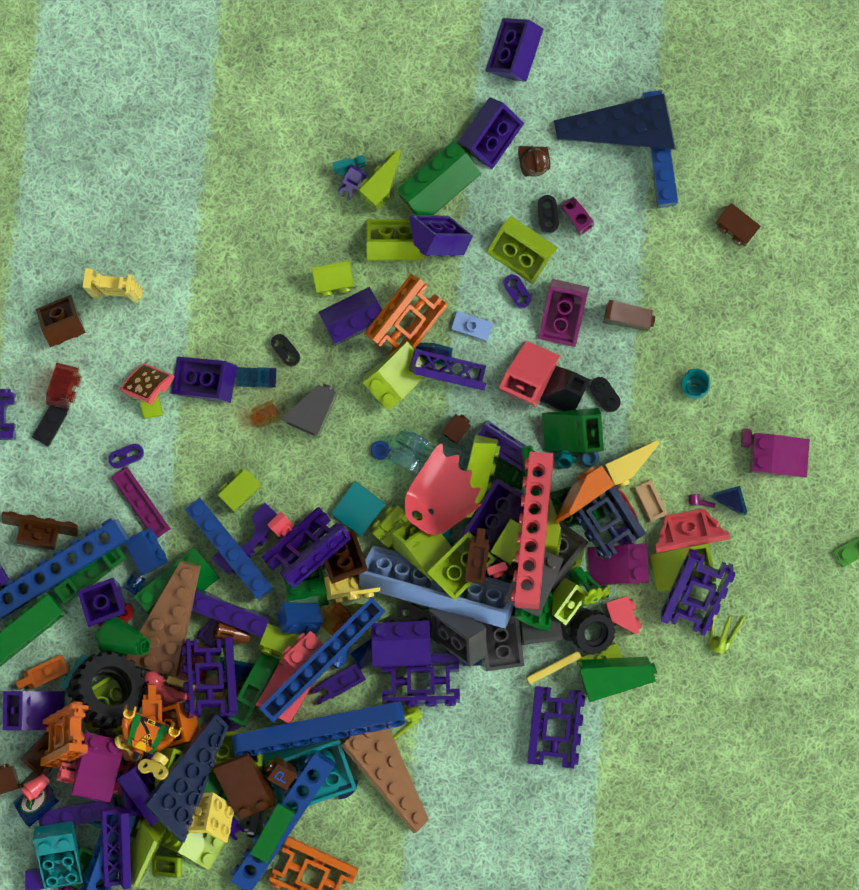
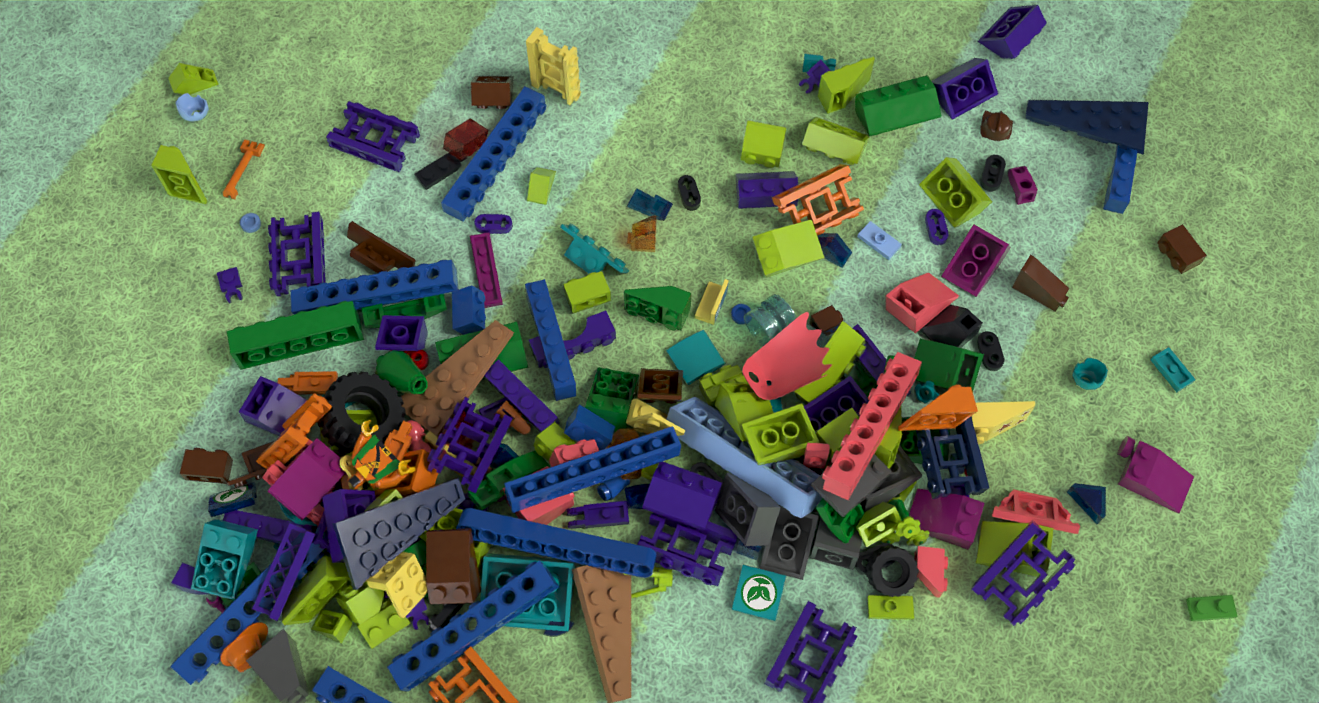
camera: 25 degrees right, 20 degrees down
(35, 787) = (239, 480): coral cone -> none
(96, 319) = (528, 101): none -> blue brick
(134, 582) = (442, 334): clear blue tile -> none
(146, 383) = (543, 165): slope -> none
(155, 766) = (372, 495): light yellow piece -> none
(204, 379) = (601, 186): dark purple slope -> none
(224, 450) = (588, 255): none -> teal bracket
(273, 832) = (456, 629): green tile -> none
(280, 525) = (612, 339): coral plate -> none
(280, 772) = (495, 568): reddish brown brick -> none
(312, 410) = (690, 247): dark grey slope -> none
(312, 556) = (627, 363): dark purple fence -> none
(316, 475) = (659, 304): none -> green slope
(350, 450) = (712, 302): none -> light yellow panel
(439, 235) = (881, 145): dark purple slope -> none
(443, 375) = (838, 265): dark purple fence -> none
(477, 558) = (800, 430): reddish brown hinge -> none
(494, 692) = (759, 592): none -> slope
(553, 667) = (834, 592): light yellow tile -> none
(615, 675) = (897, 627): green slope -> none
(650, 500) = (1001, 469): tan tile -> none
(694, 499) = (1049, 487): magenta hand -> none
(719, 643) = (1027, 644): lime plant -> none
(764, 347) = (1172, 369): none -> teal plate

